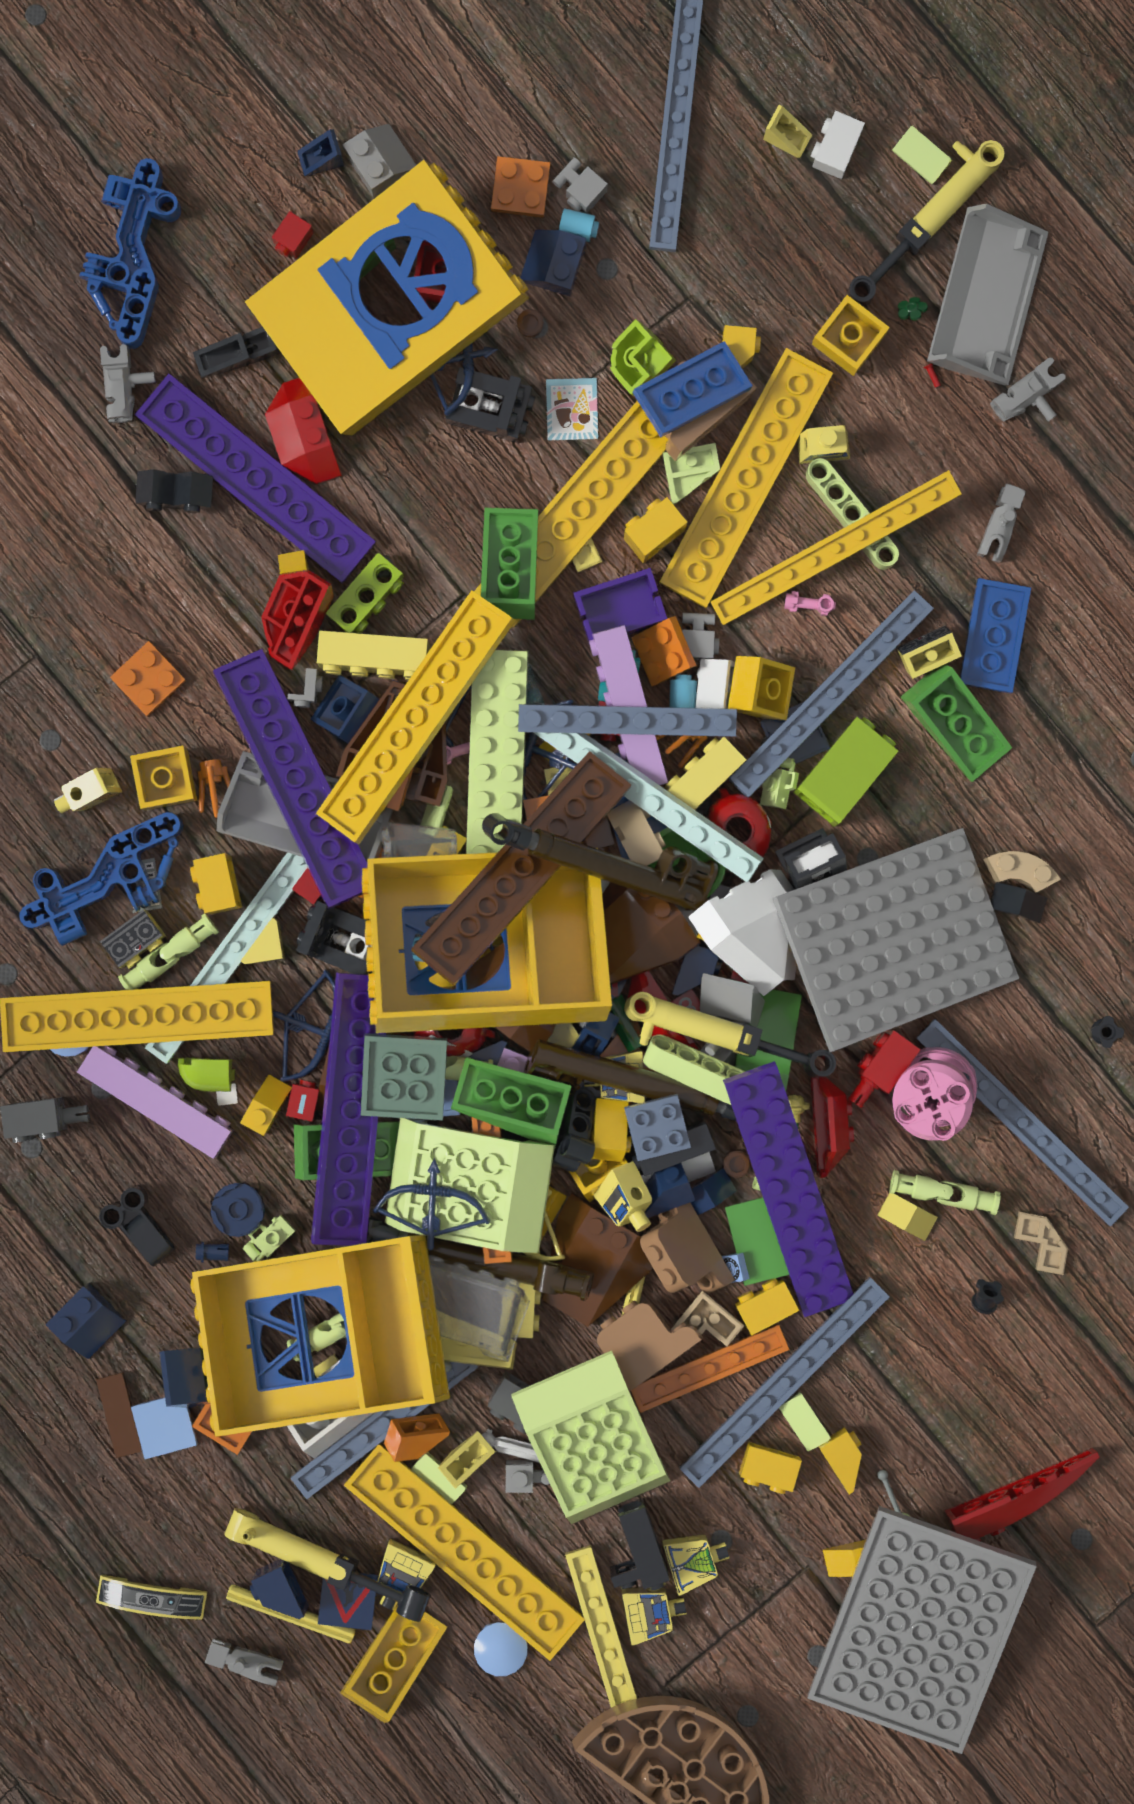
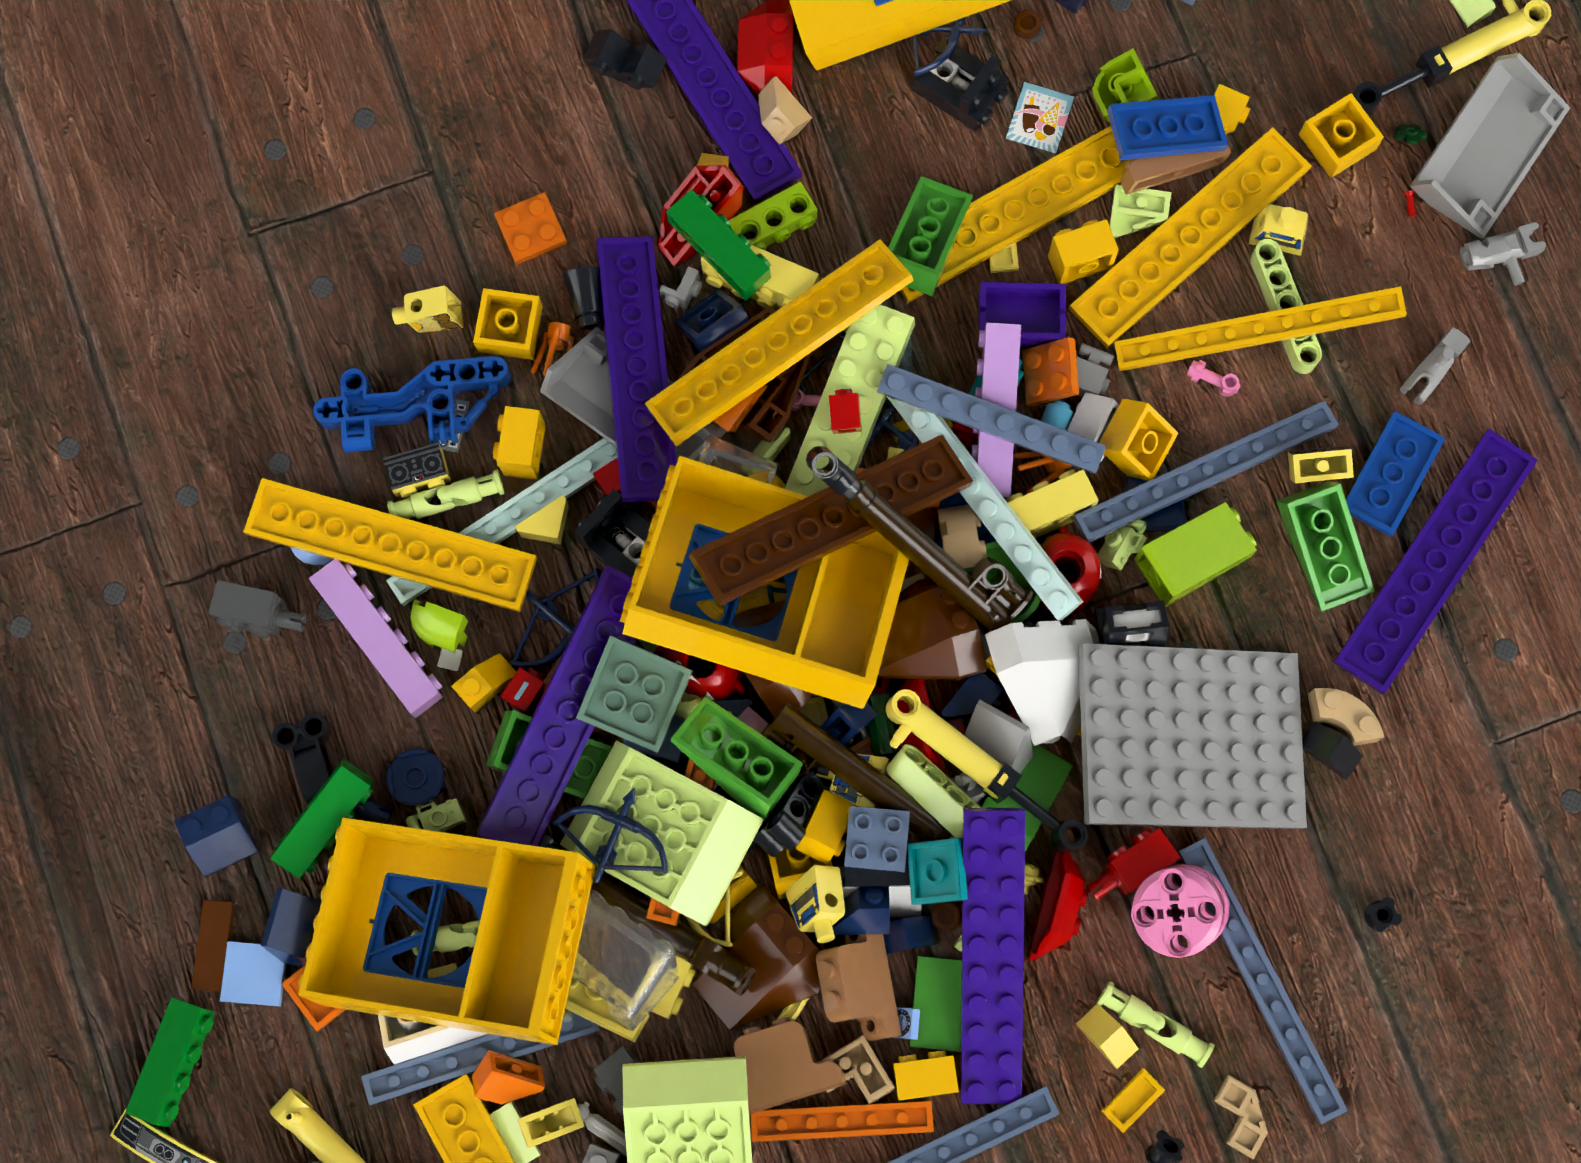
camera: 25 degrees right, 10 degrees down
(125, 1525) = (170, 1062): none -> green brick
(172, 1276) = (321, 818): none -> green brick
(223, 727) = (585, 296): none -> black plant
(329, 646) = (718, 244): none -> green brick
(335, 490) = (781, 111): none -> tan slope
(497, 760) = (845, 412): none -> red brick
(718, 1139) = (937, 871): none -> teal tile
(946, 1262) = (1132, 1100): none -> yellow tile
(1056, 701) = (1435, 561): none -> dark purple plate

